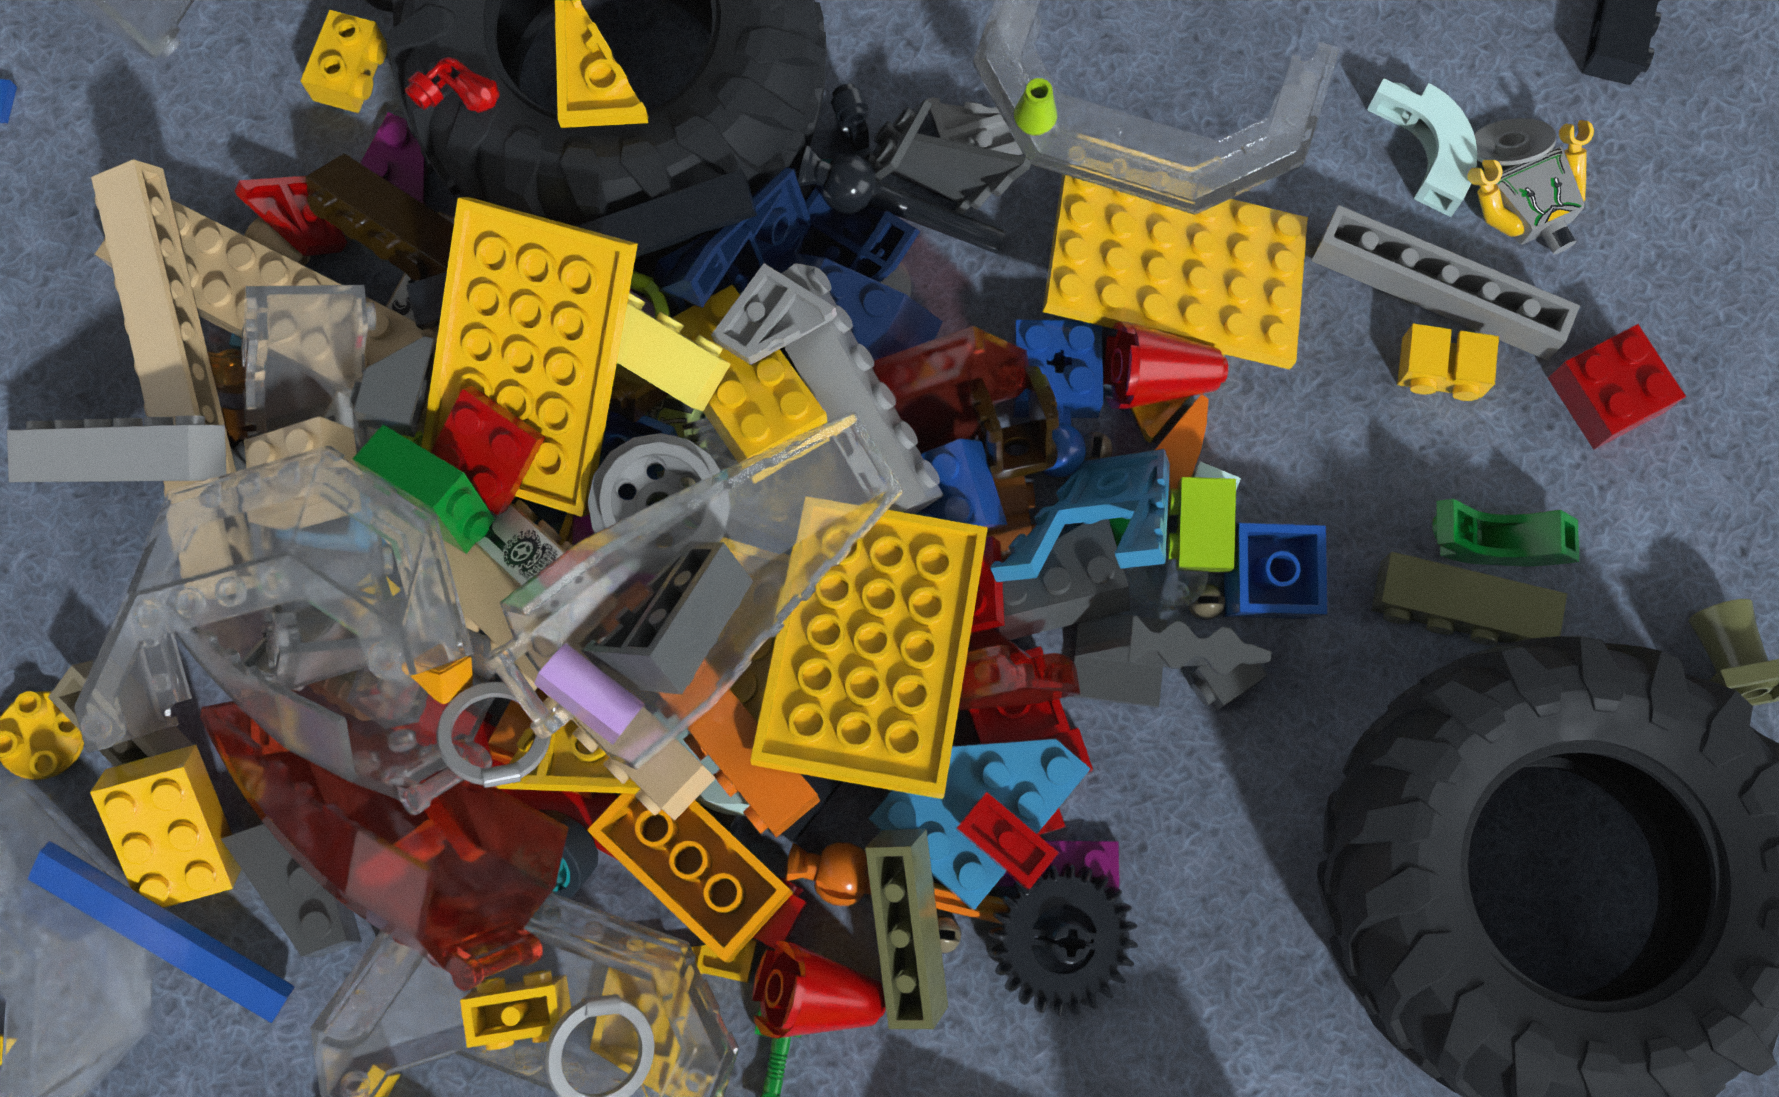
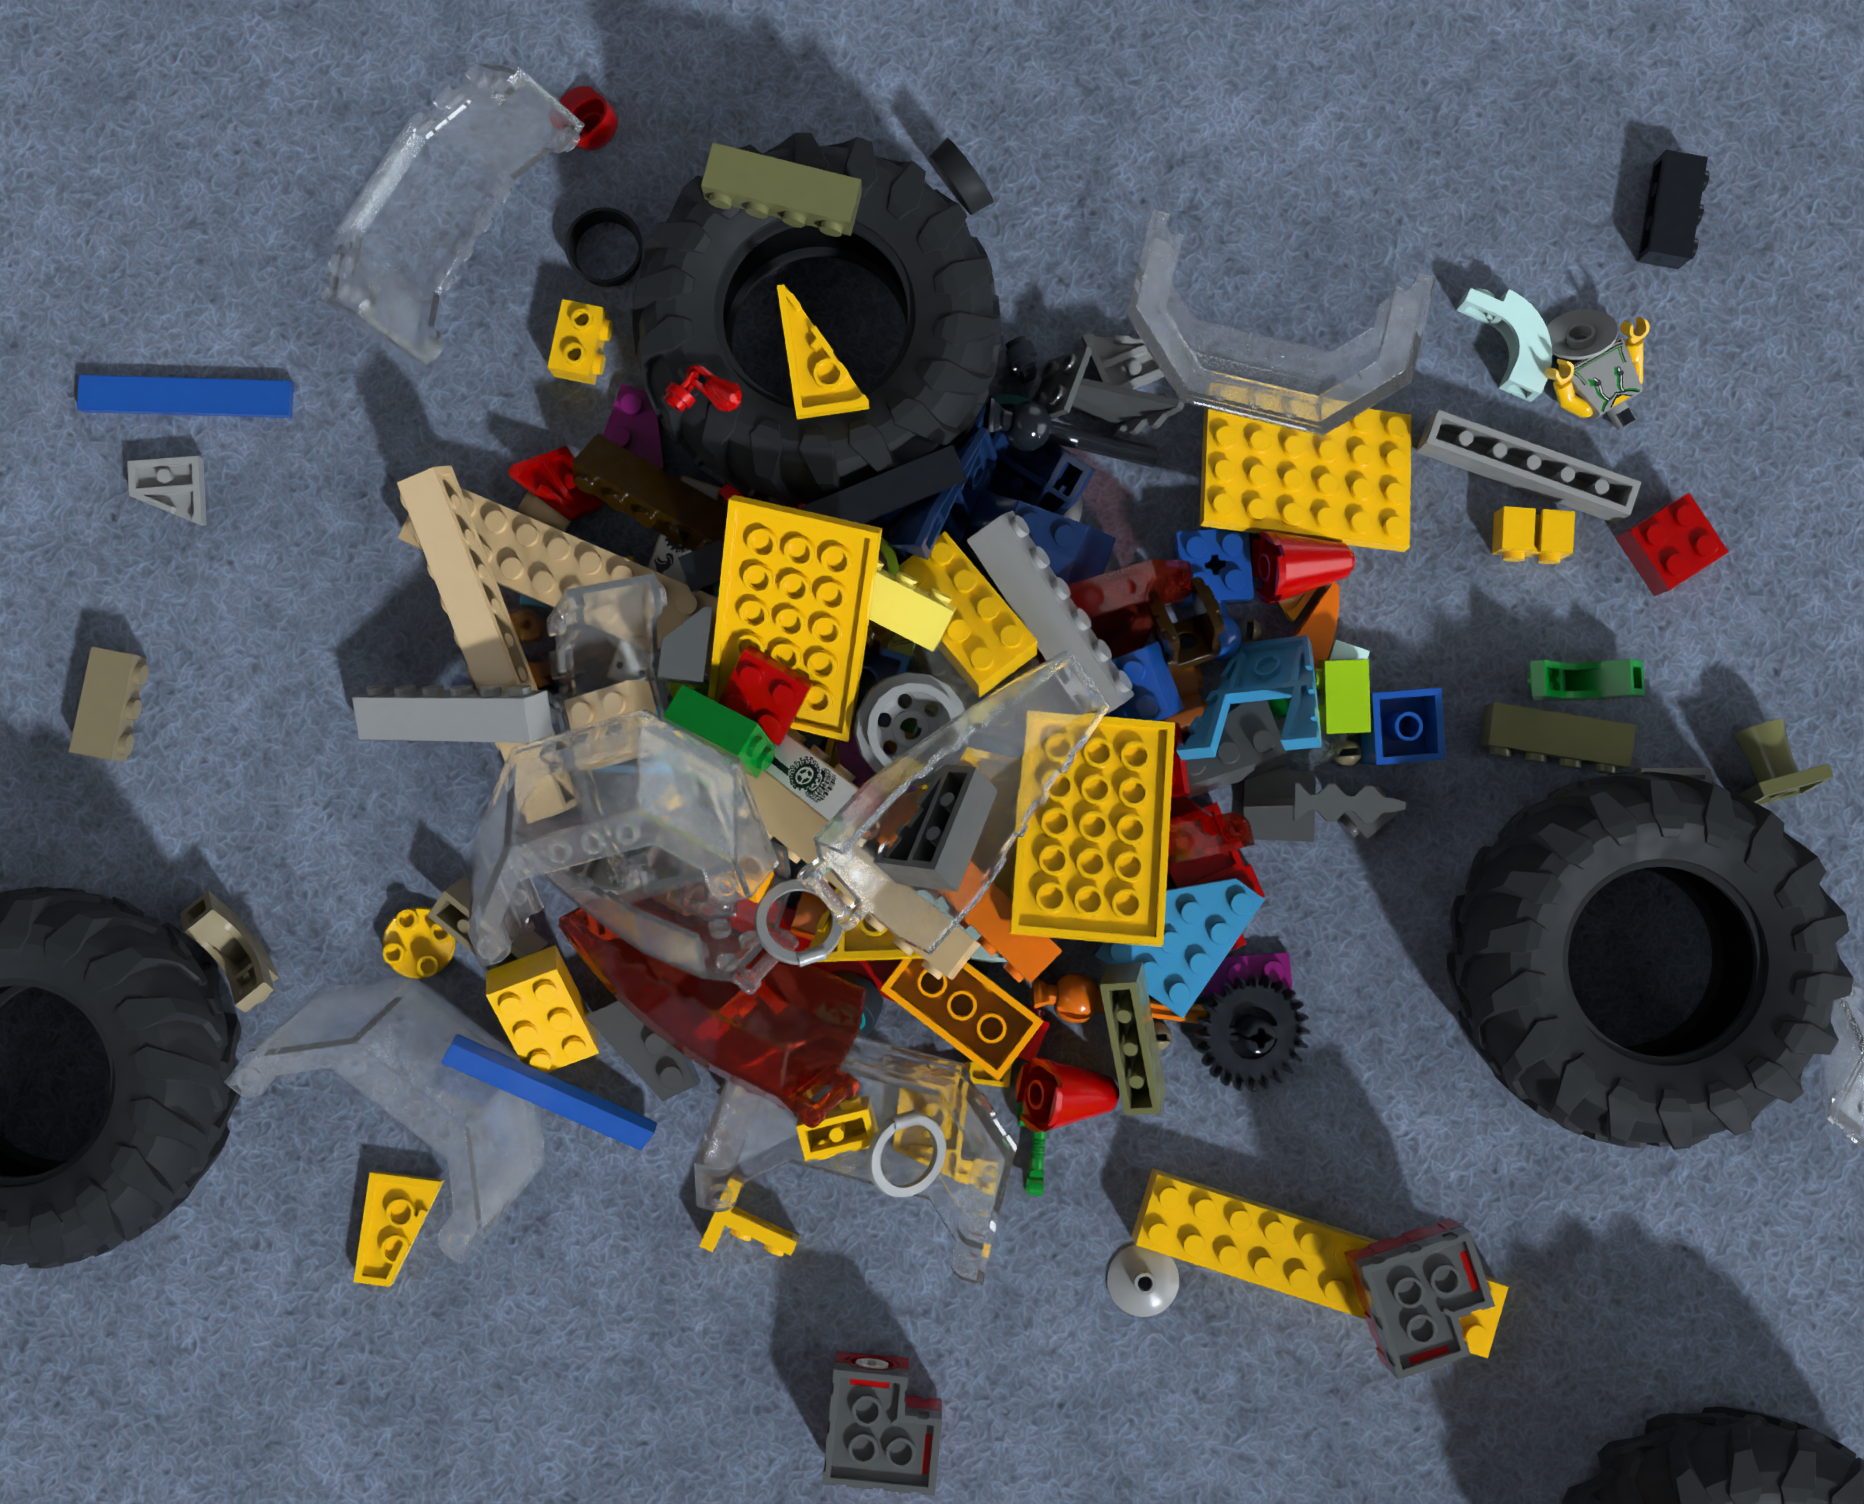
camera: 10 degrees left, 10 degrees up
(588, 693) = (885, 896): lavender brick -> none
(770, 316) = (985, 564): light grey wing -> none
(1007, 840) = (1206, 965): red plate -> none
(1036, 108) = (1182, 365): lime cone -> none

